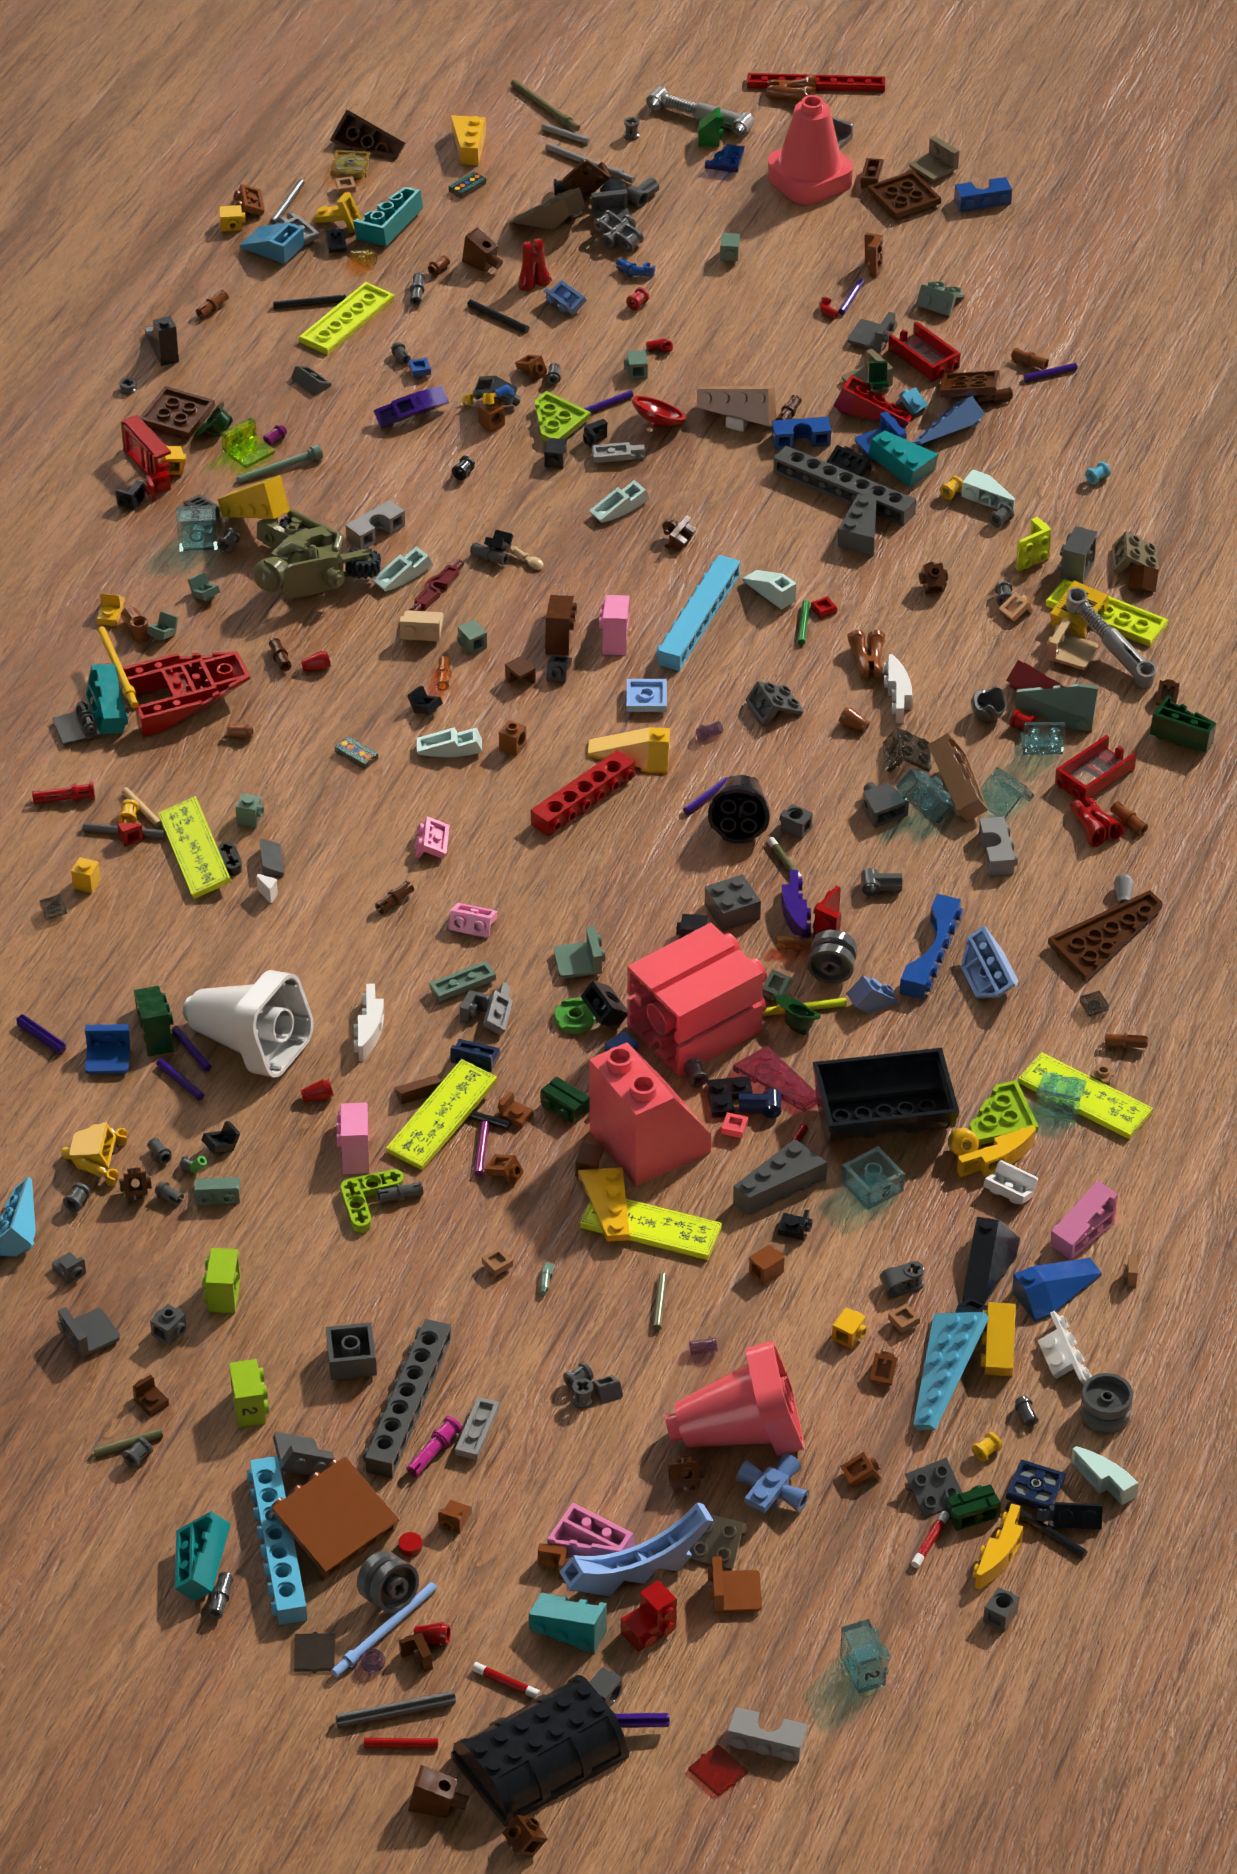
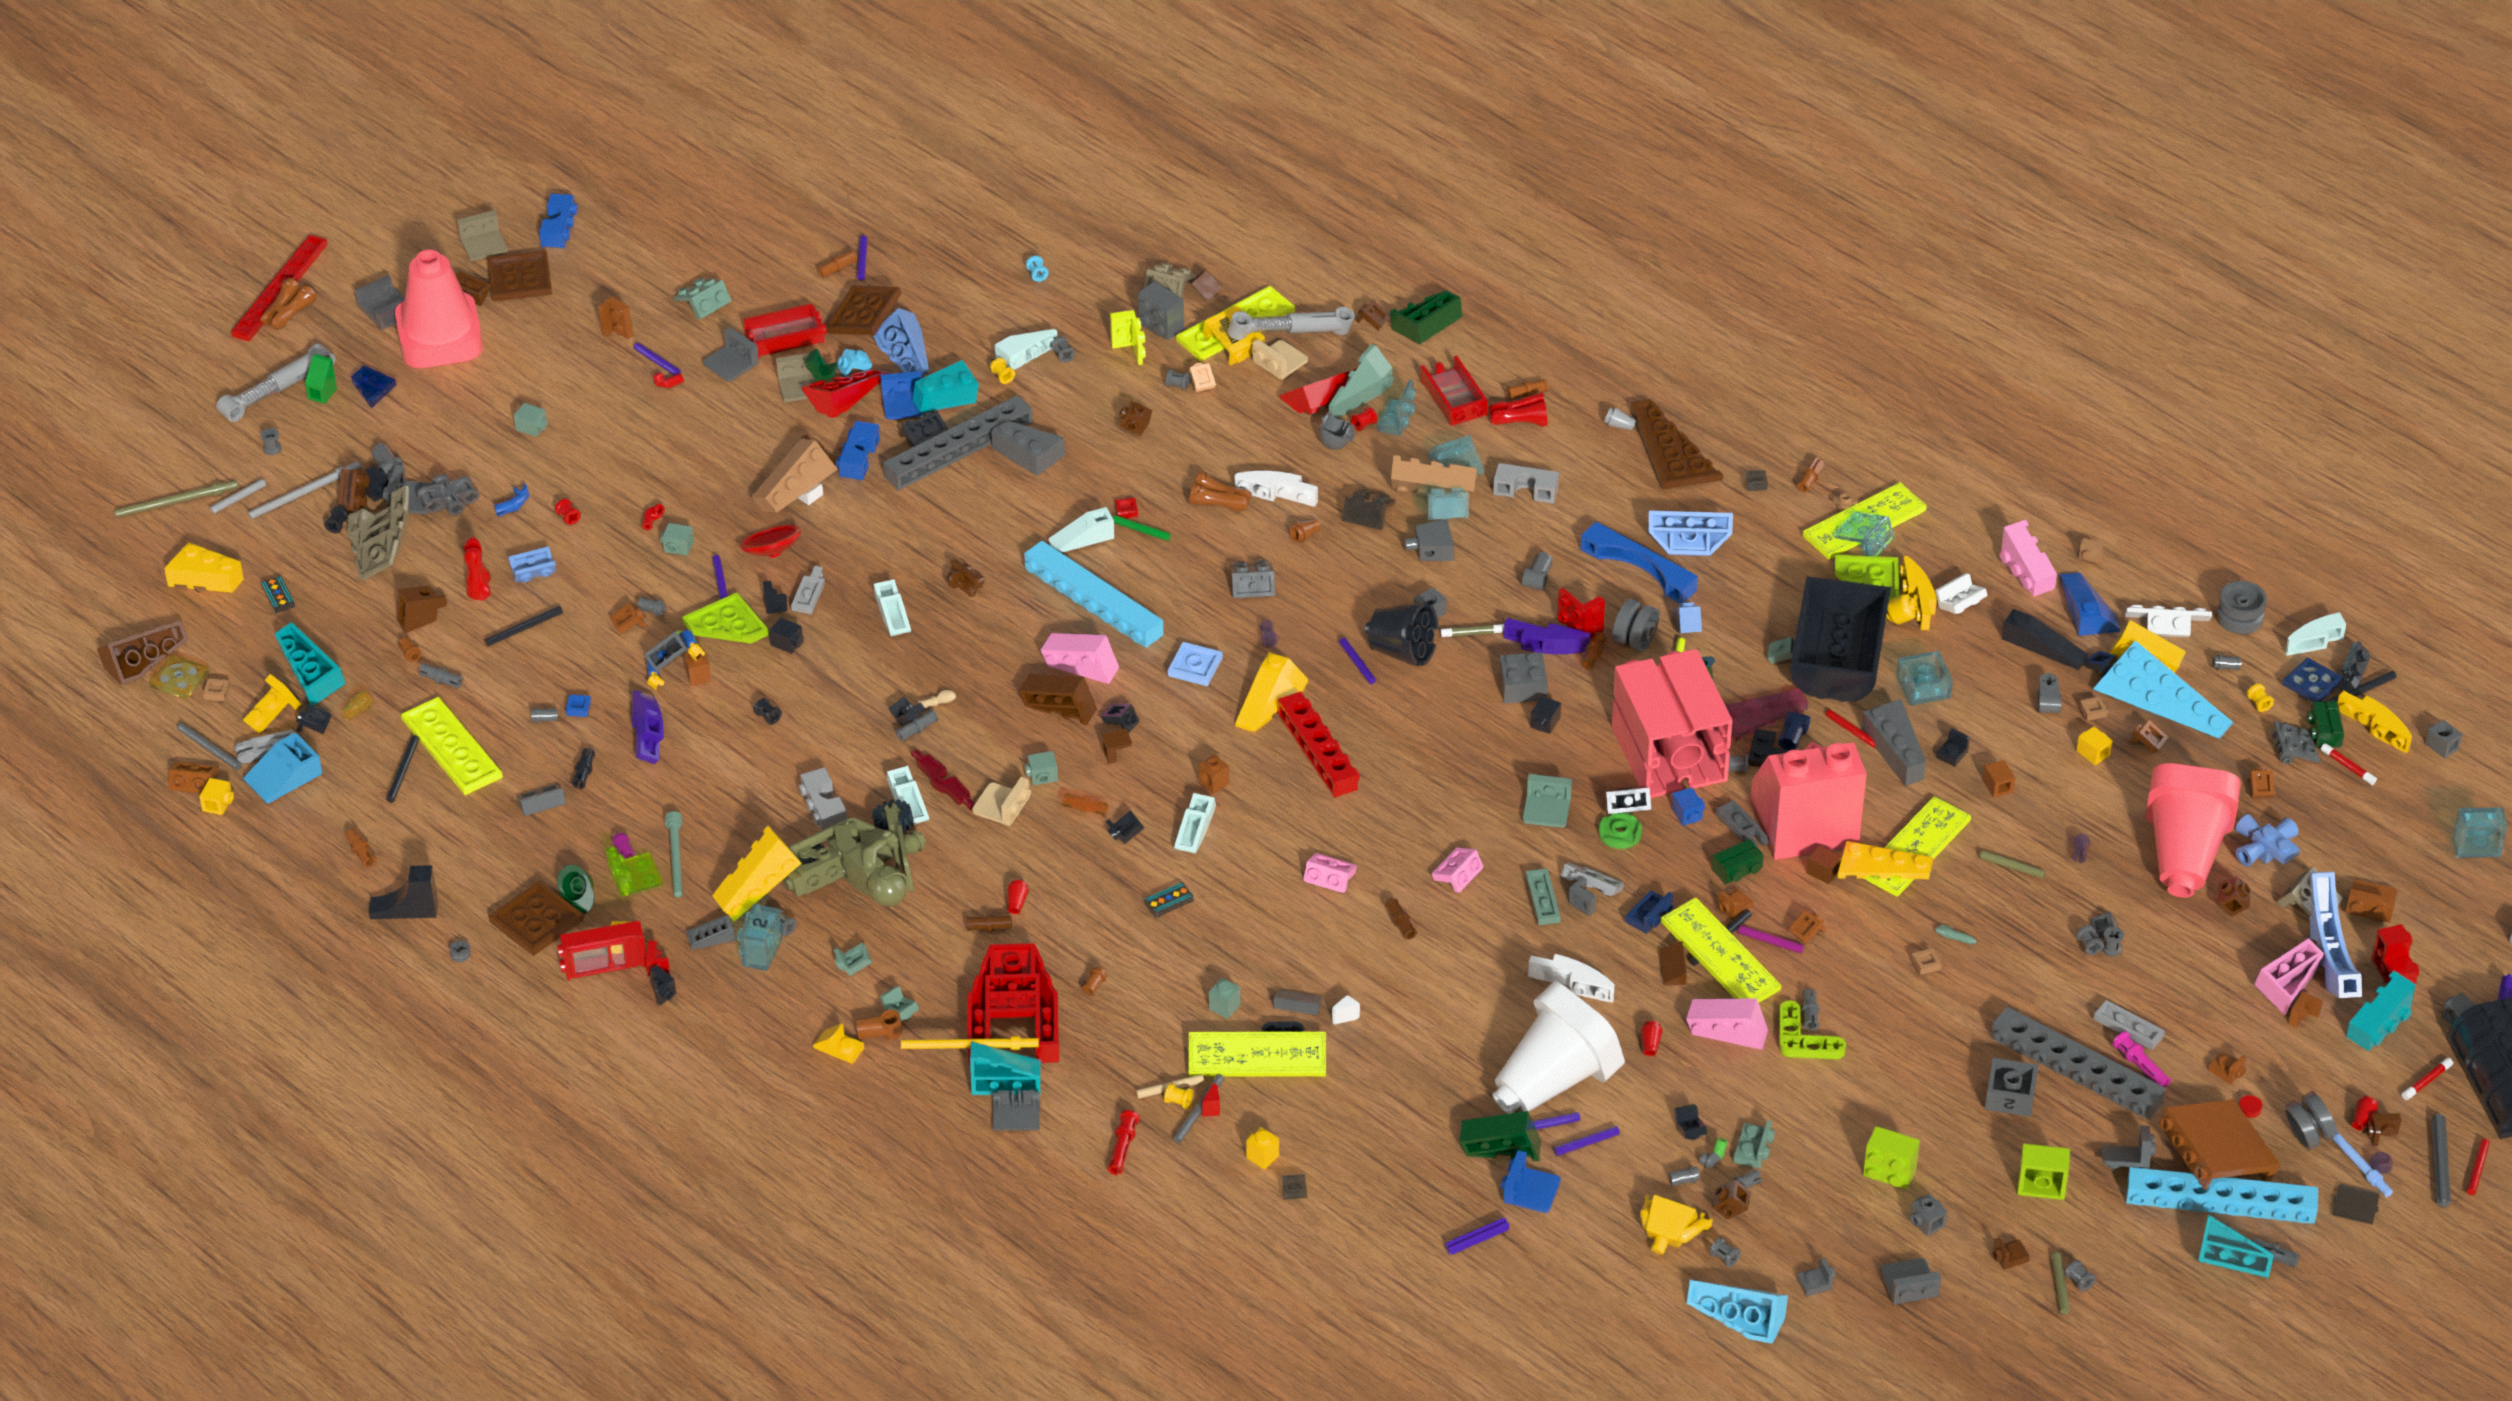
camera: 70 degrees left, 0 degrees up
(353, 390) = (583, 768): none -> black pin

